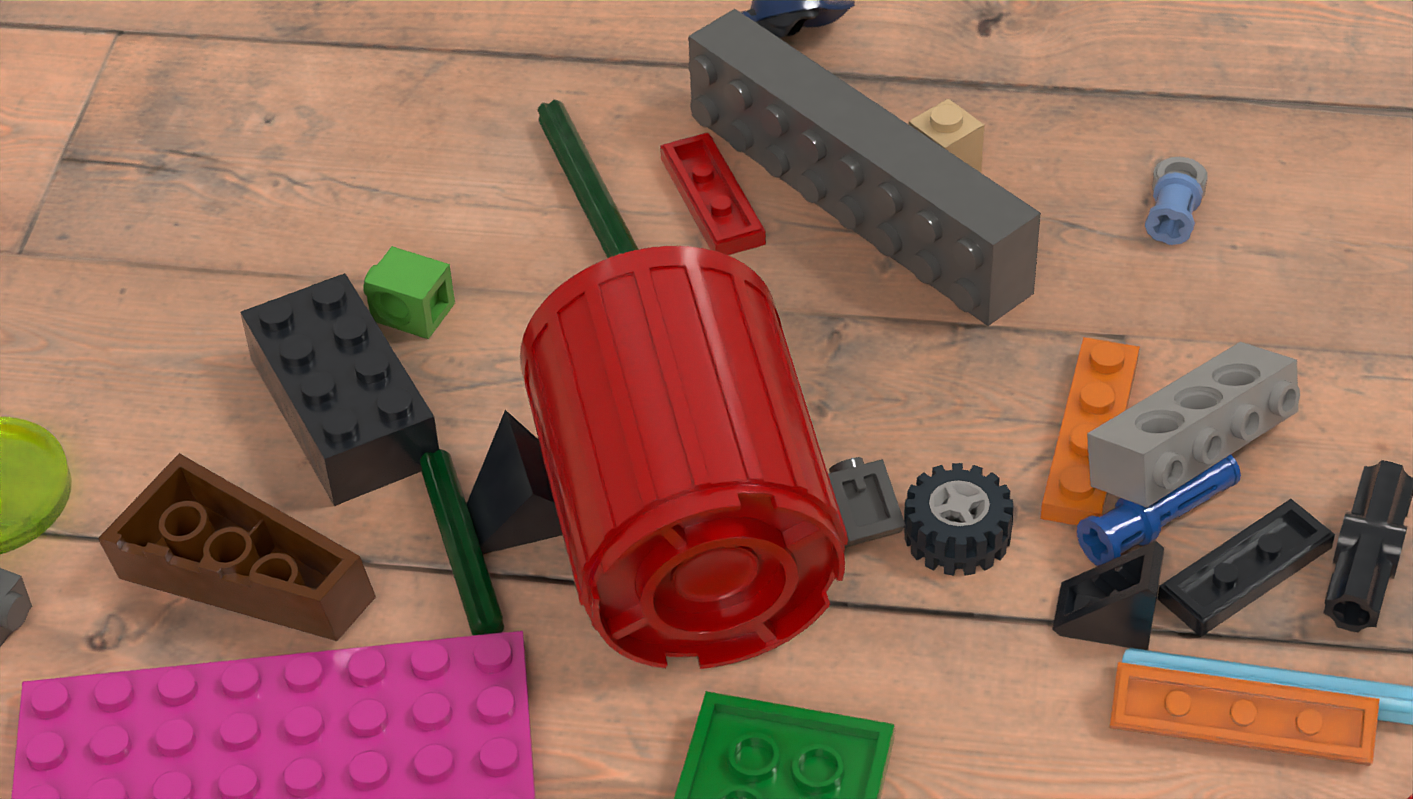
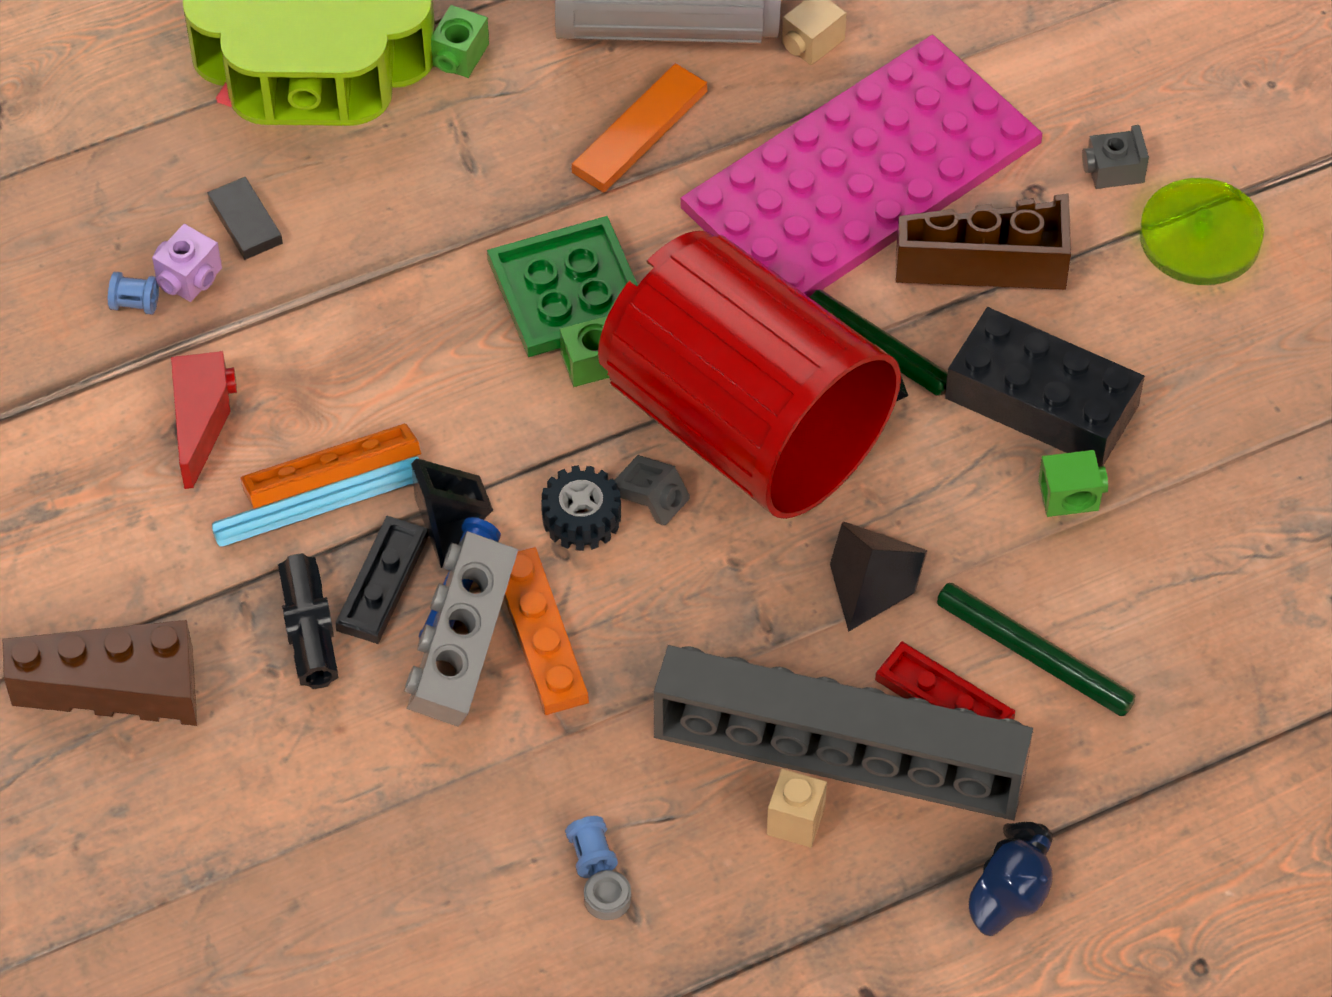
camera: 145 degrees right, 10 degrees up
(813, 675) = (576, 351): none -> bright green brick

